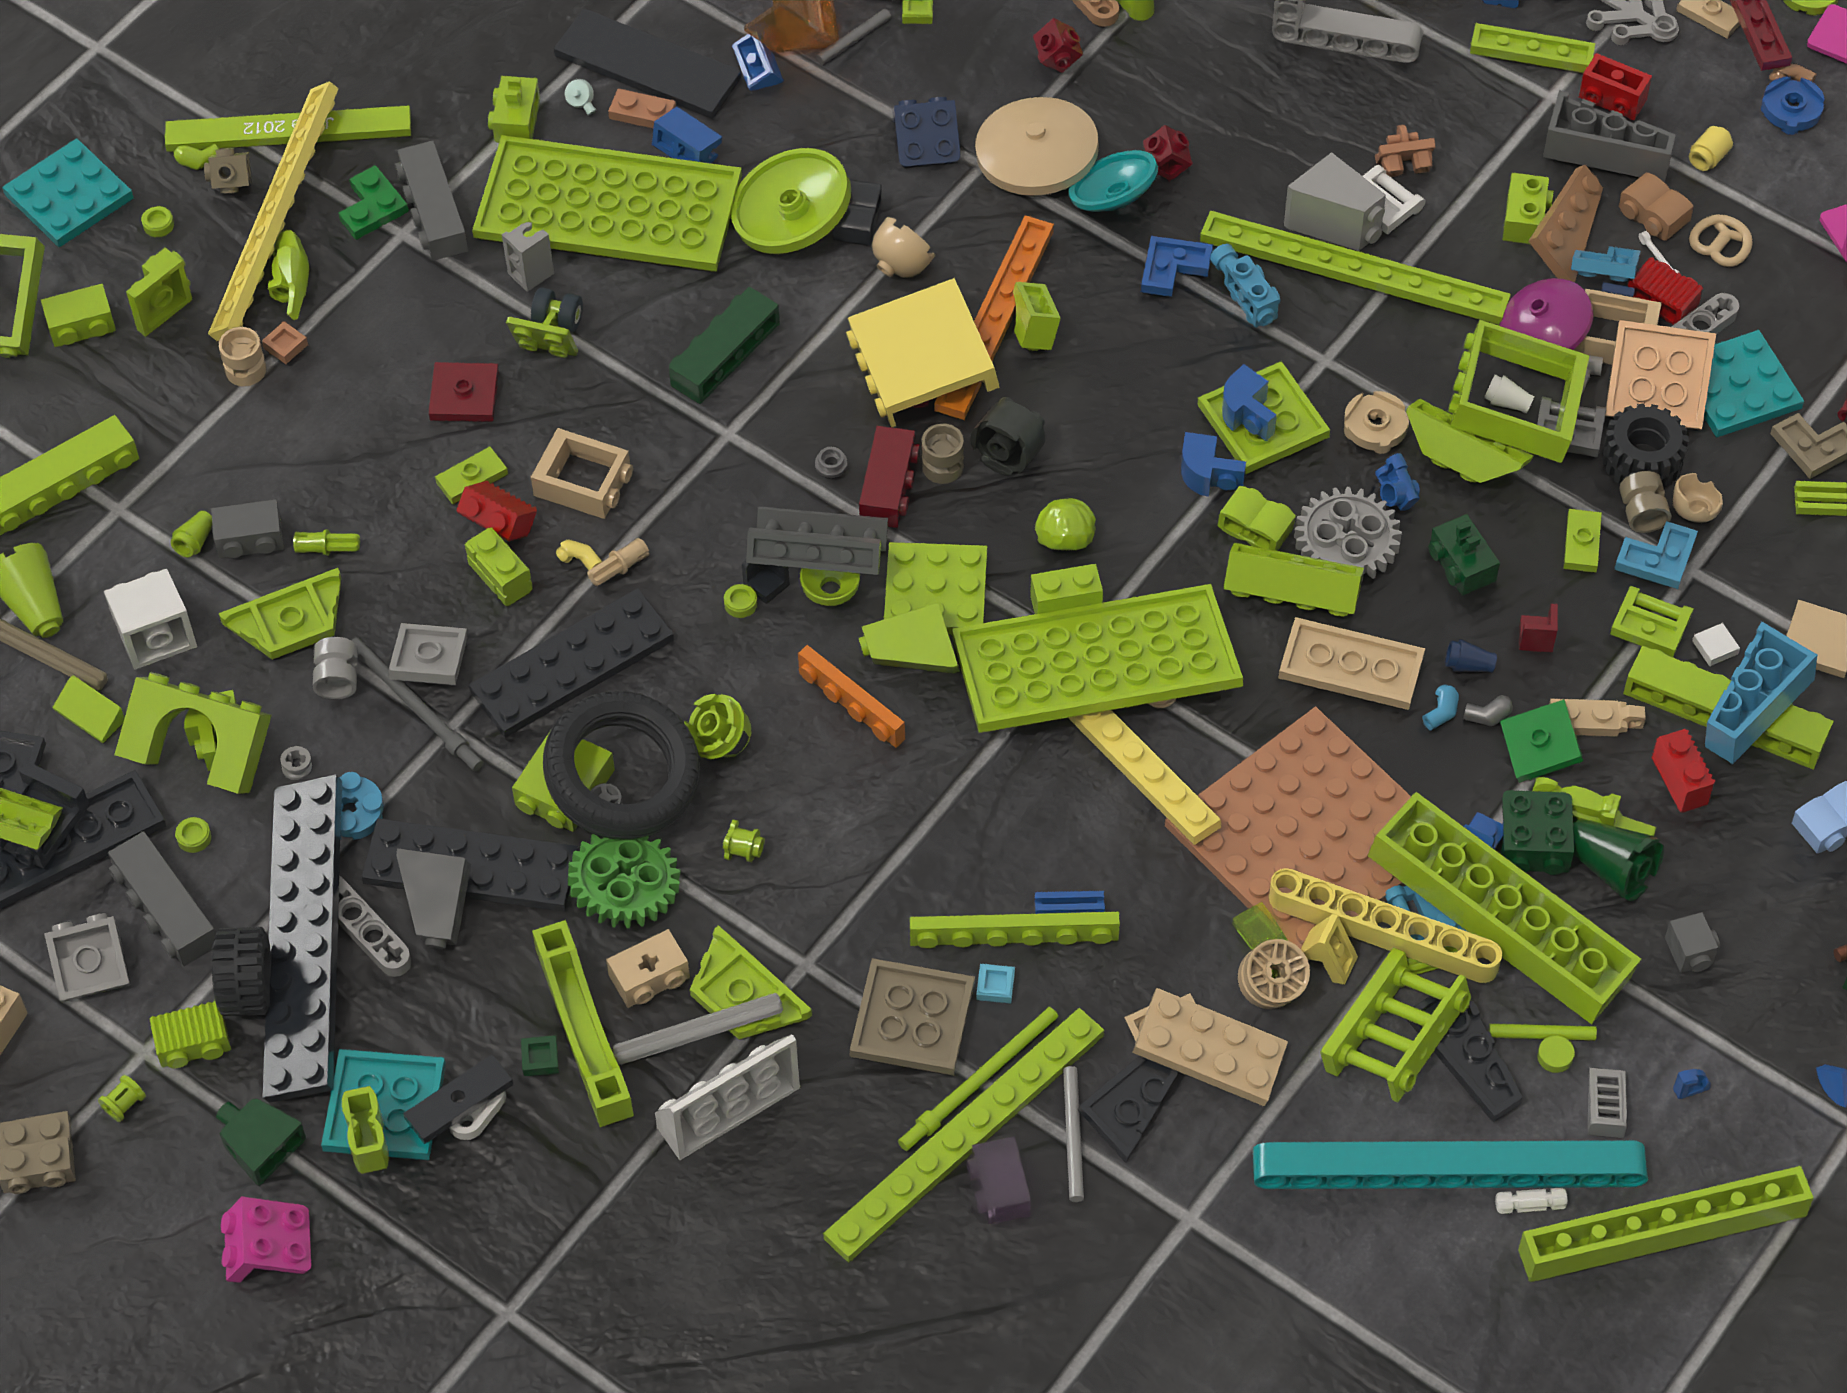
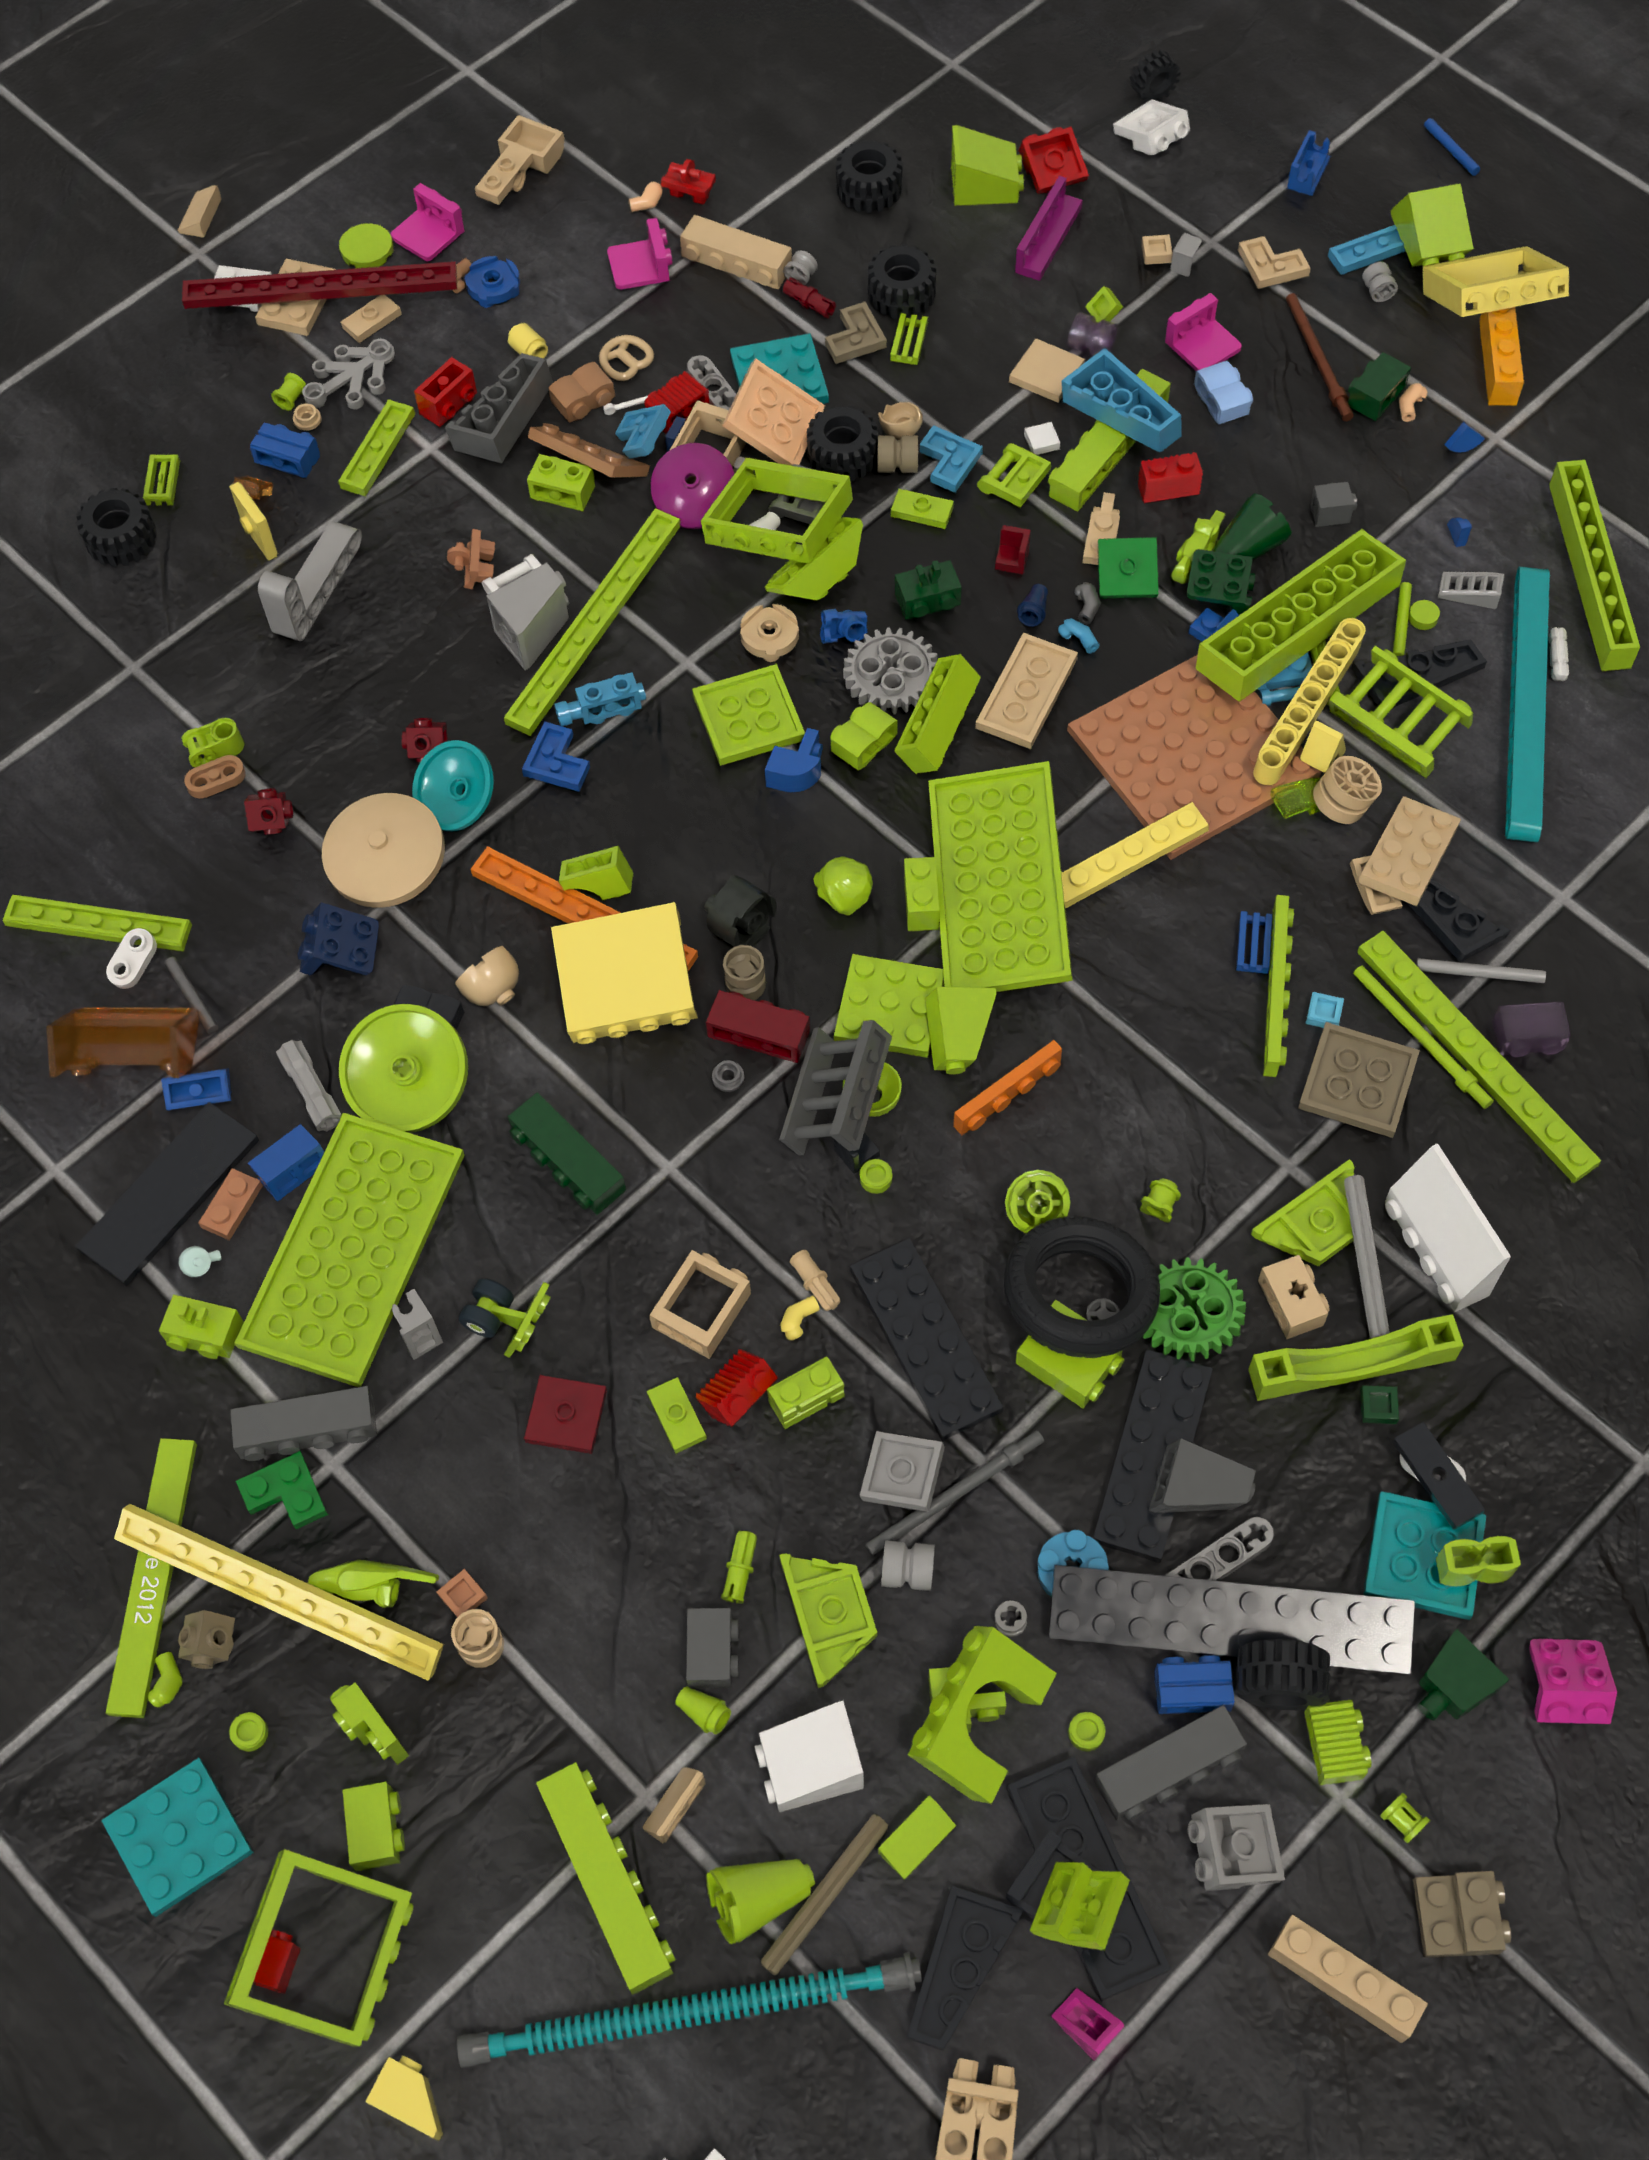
camera: 80 degrees left, 5 degrees up
(108, 528) = (674, 1804): none -> tan slope
(237, 901) = (1193, 1685): none -> blue brick
(786, 128) = (299, 1067): none -> light grey axle
(1243, 403) = (741, 721): blue brick -> none

